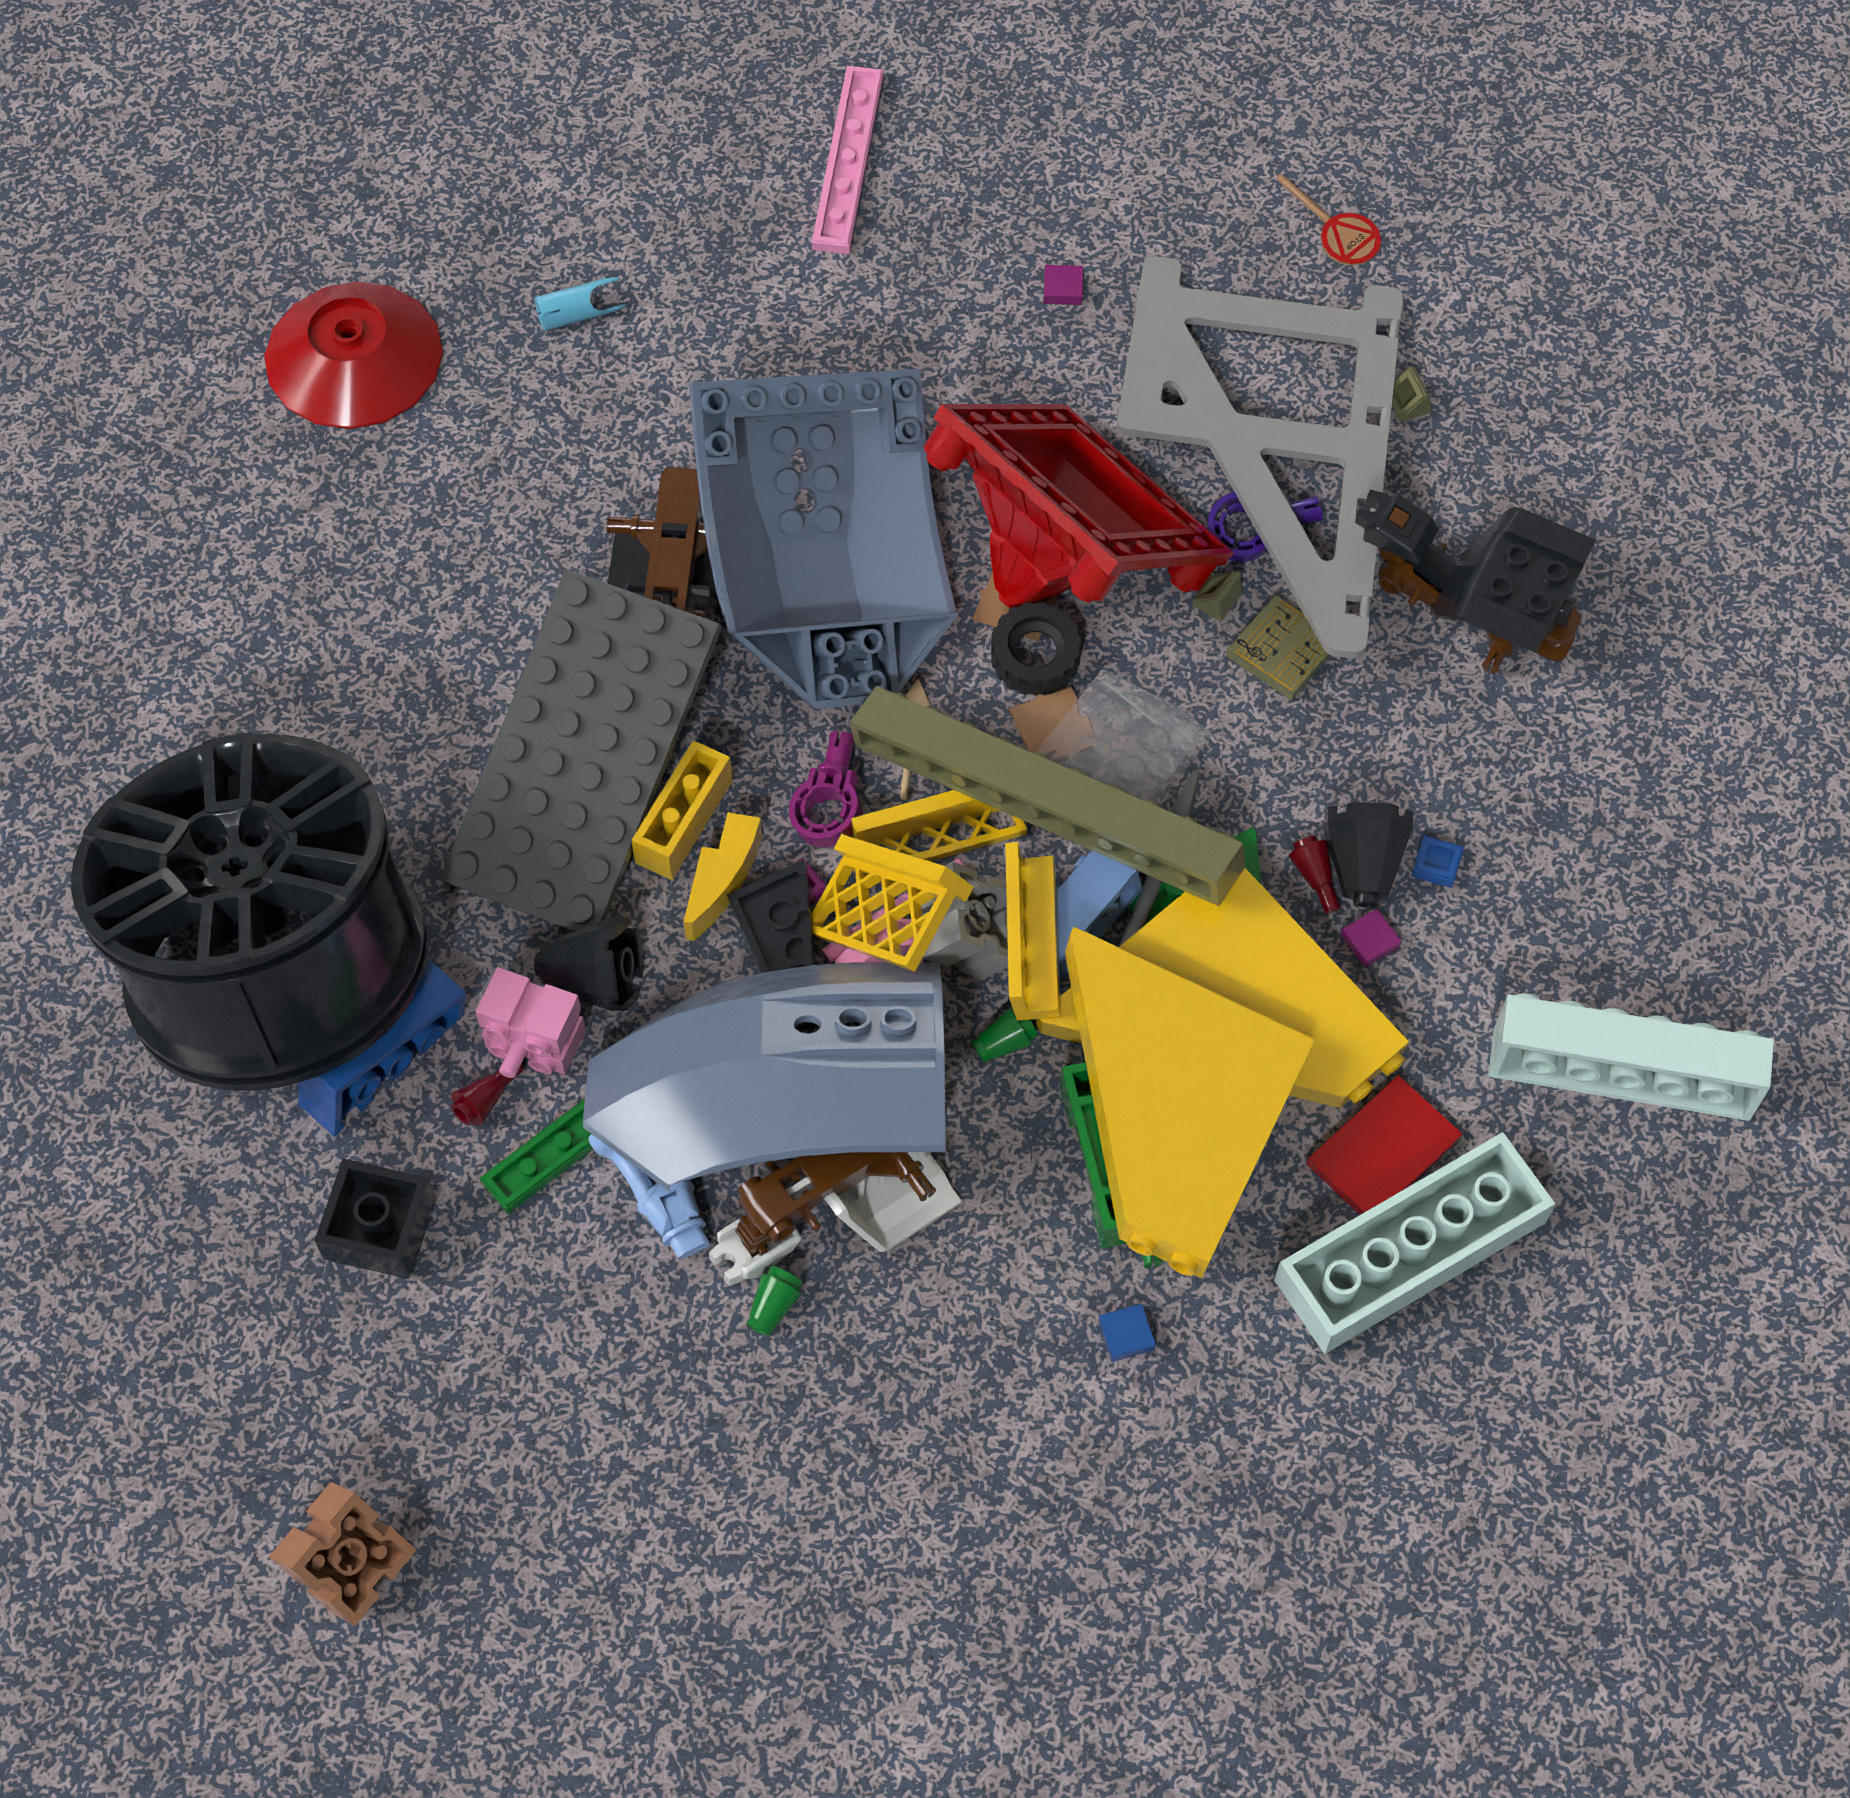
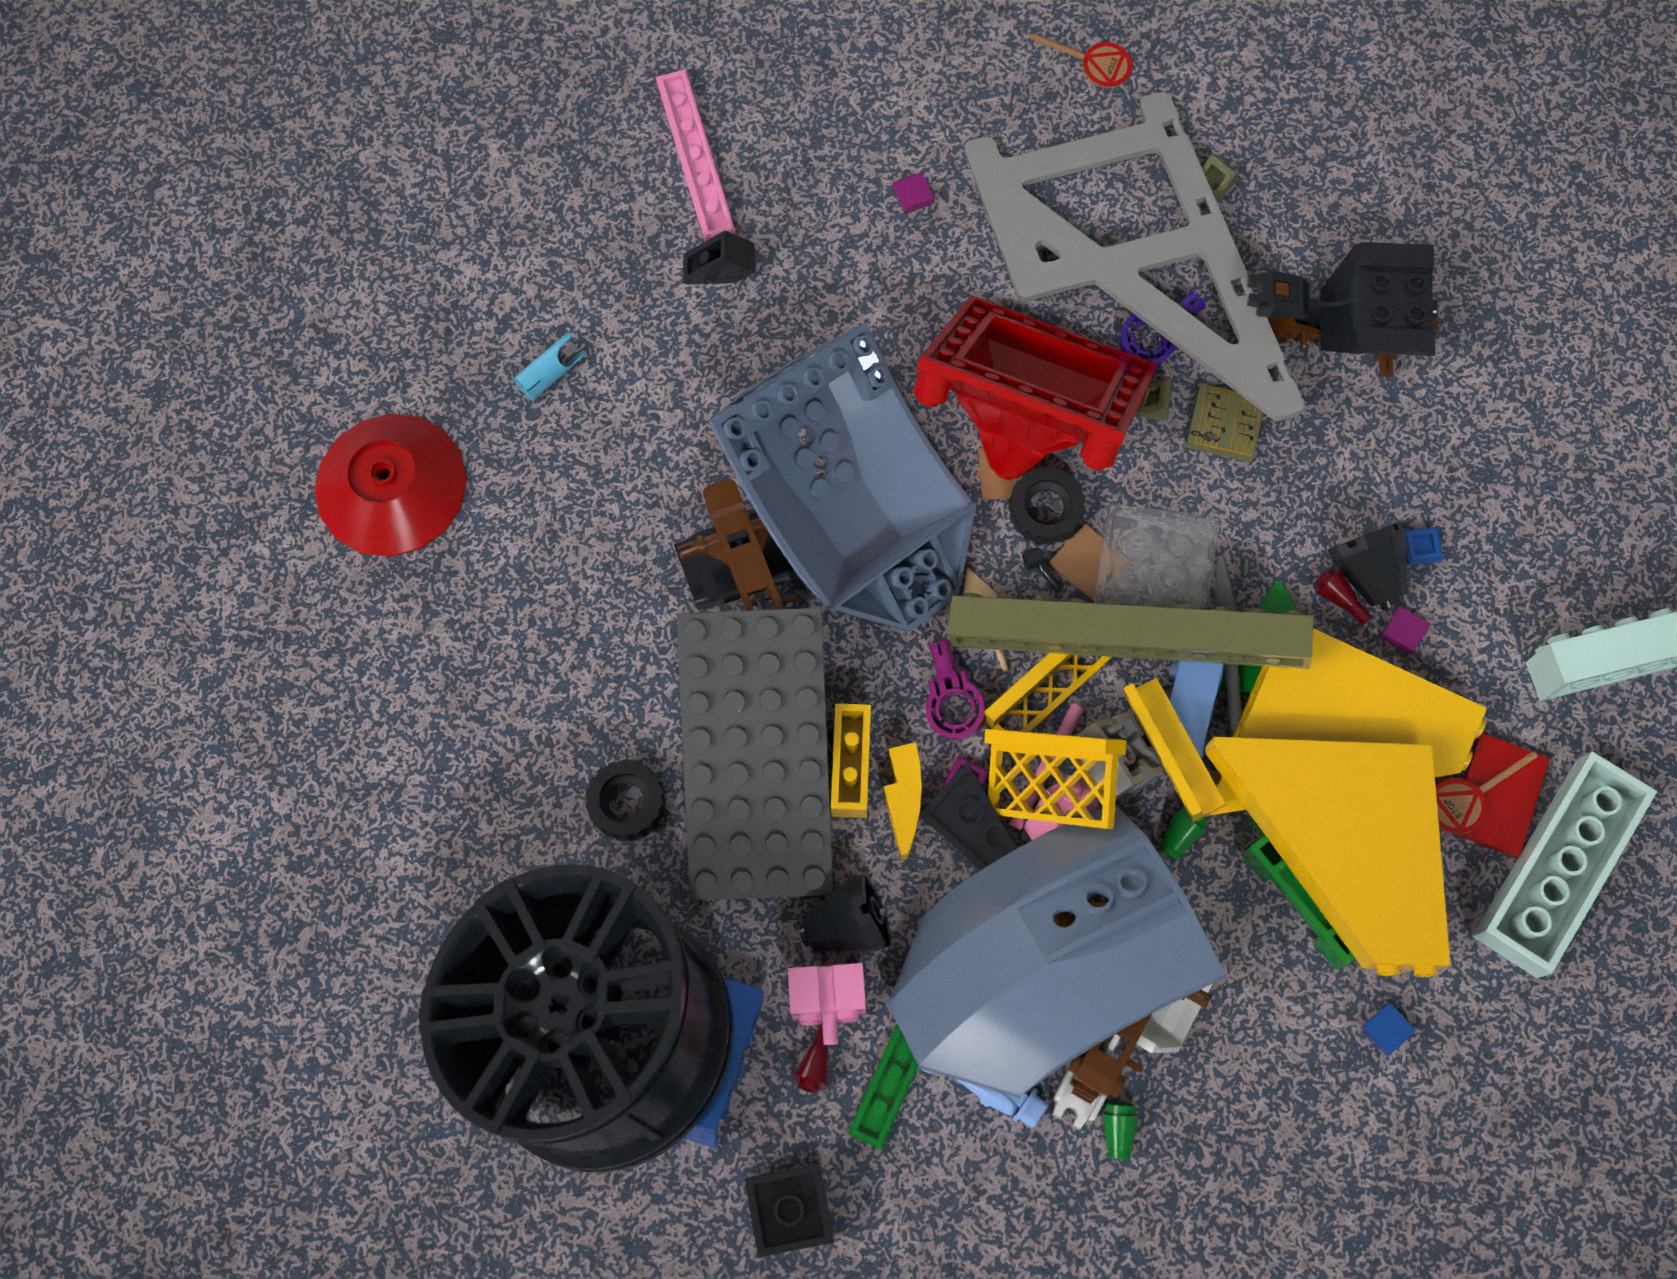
camera: 20 degrees left, 10 degrees up
(419, 725) = (601, 788): none -> black tyre
(816, 269) = (719, 260): none -> black slope
(995, 698) = (1036, 558): none -> black hand
(1333, 1136) = (1463, 804): none -> piece

